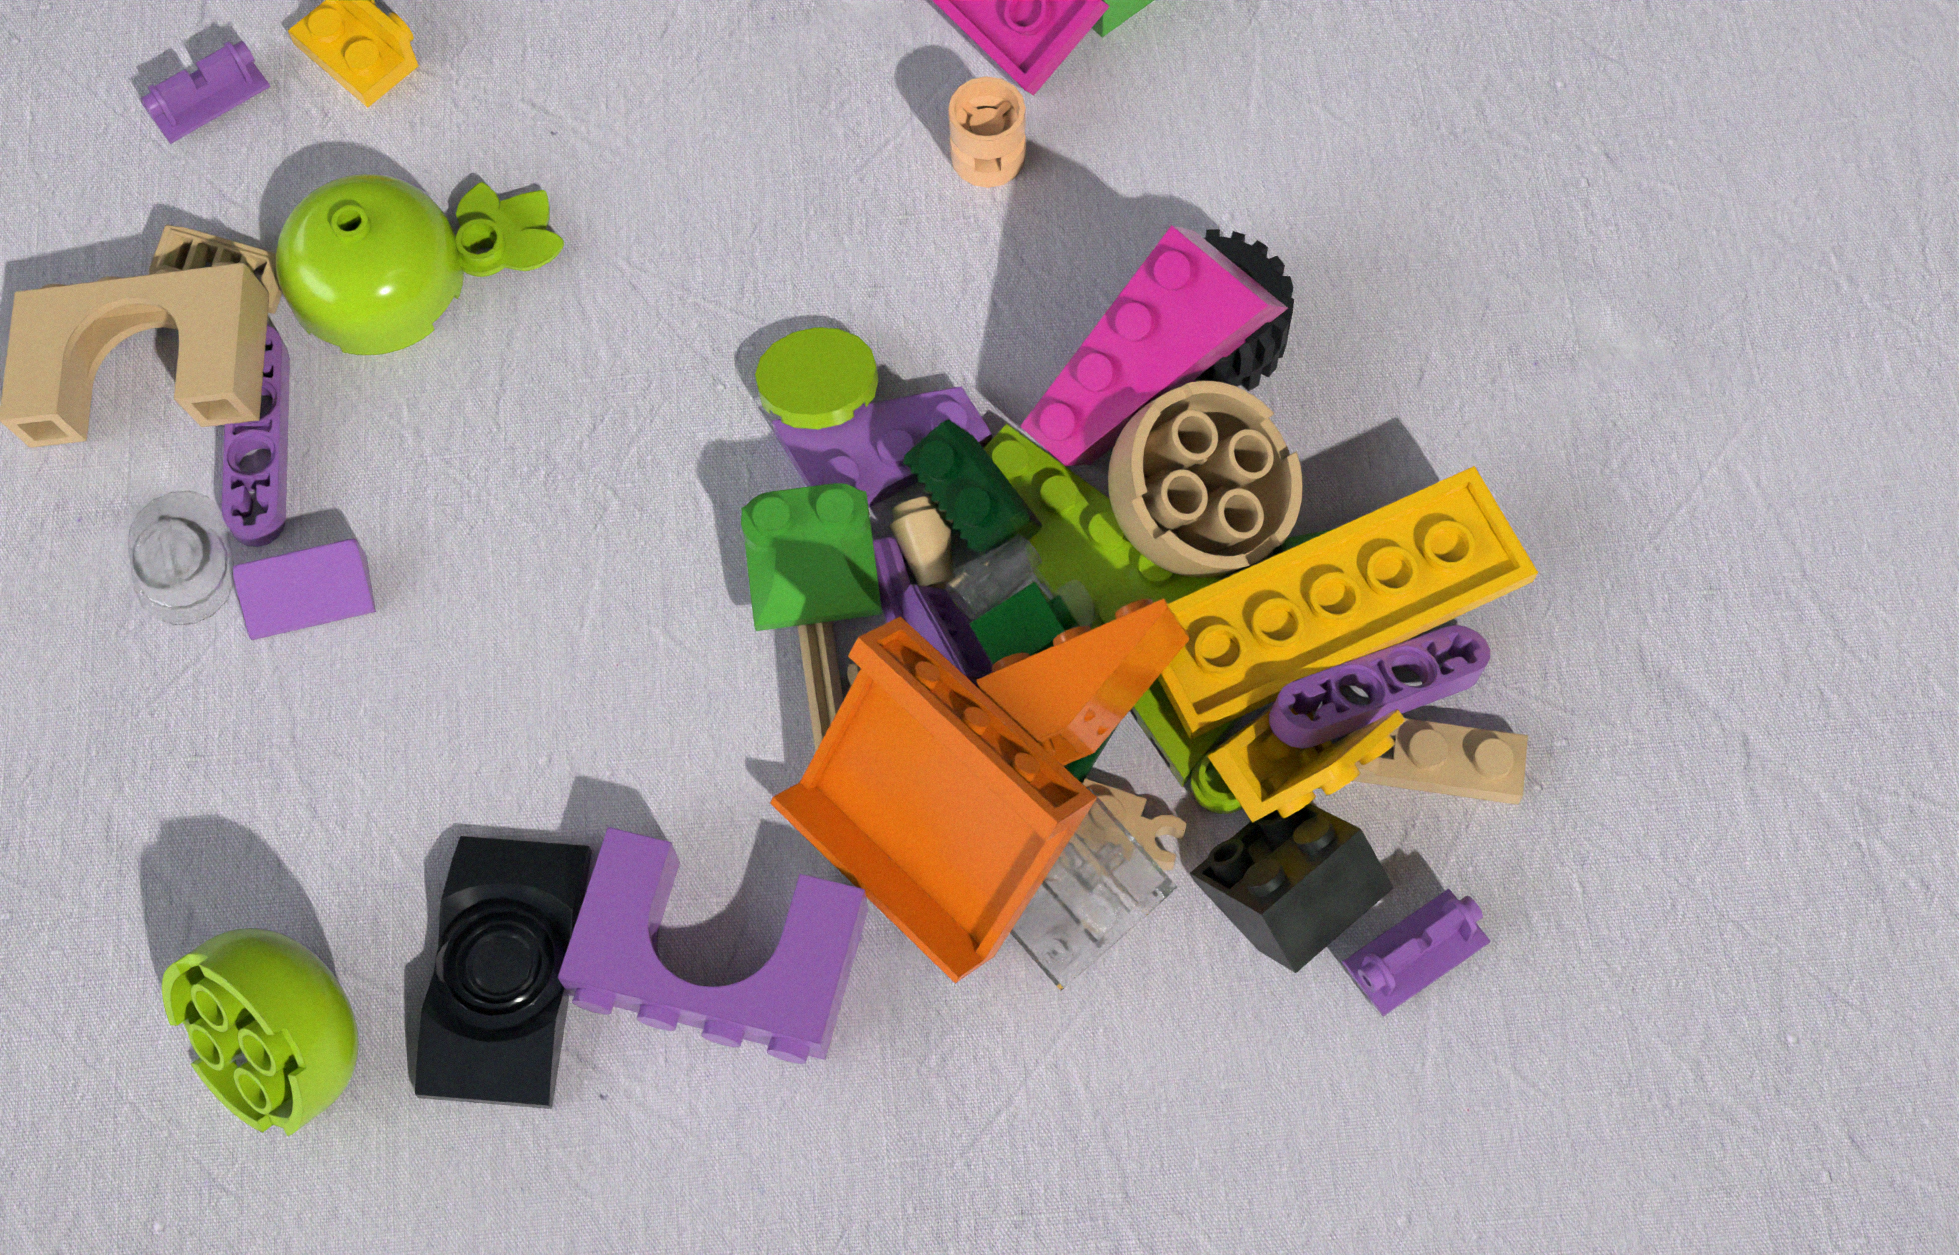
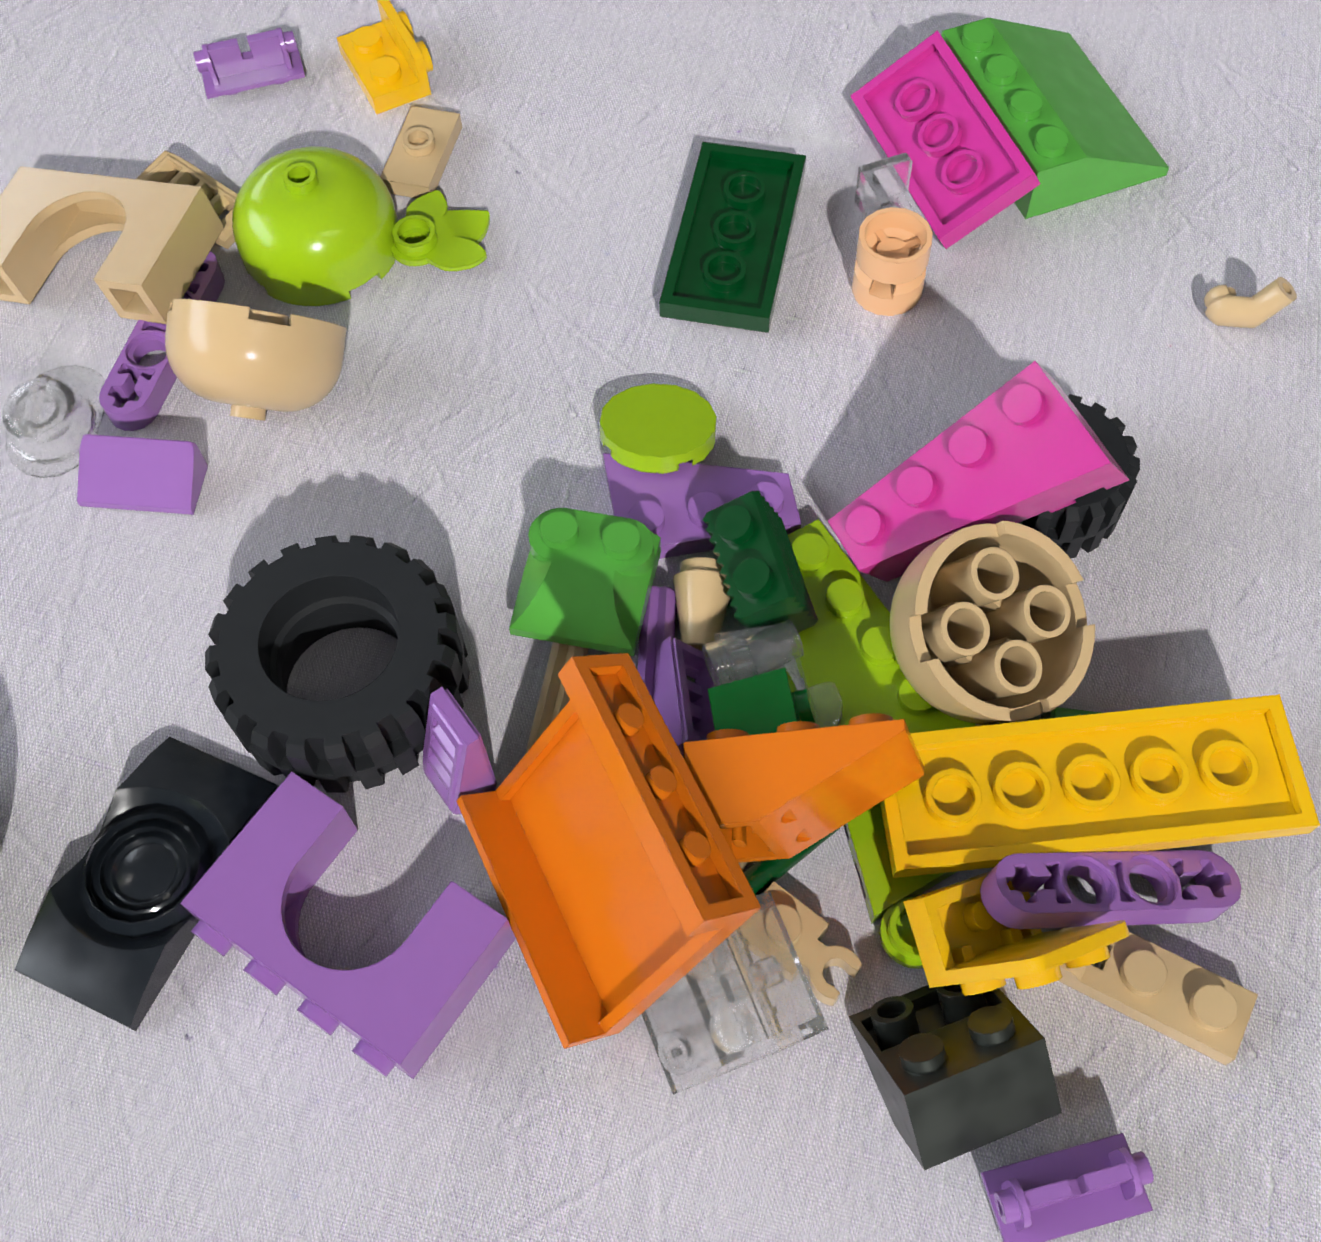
camera: 20 degrees right, 5 degrees down
(375, 431) = (253, 356): none -> tan cylinder
(441, 141) = (421, 152): none -> tan plate
(582, 637) = (294, 606): none -> black tyre
(752, 759) = (454, 752): none -> medium lavender slope
(815, 145) = (733, 237): none -> dark green plate
(954, 56) = (884, 186): none -> clear panel
(1347, 82) = (1247, 312): none -> tan arm

